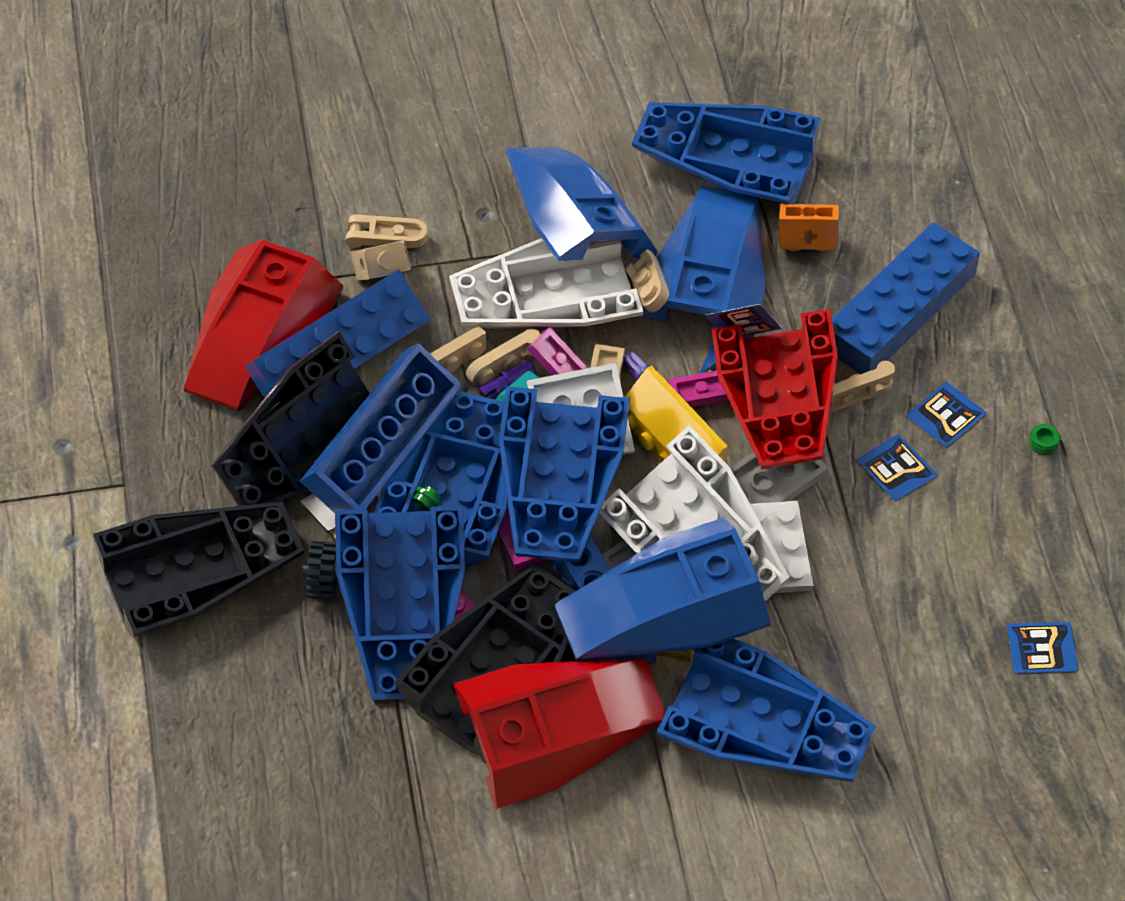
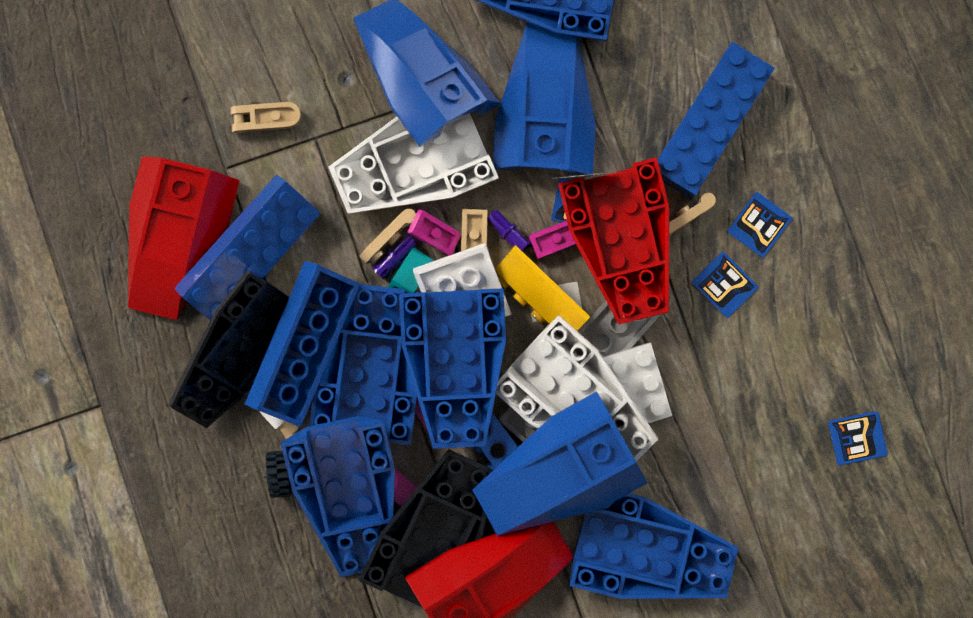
camera: 10 degrees left, 30 degrees up
(192, 560) = (174, 484): black wedge -> none
(380, 260) = (269, 155): tan torso -> none
(426, 498) = (351, 395): green plate -> none
(461, 349) = (342, 243): tan plate -> none
(649, 281) = (498, 140): tan plate -> none
(797, 220) = (625, 58): orange brick -> none
(1044, 439) = (842, 239): green tile -> none

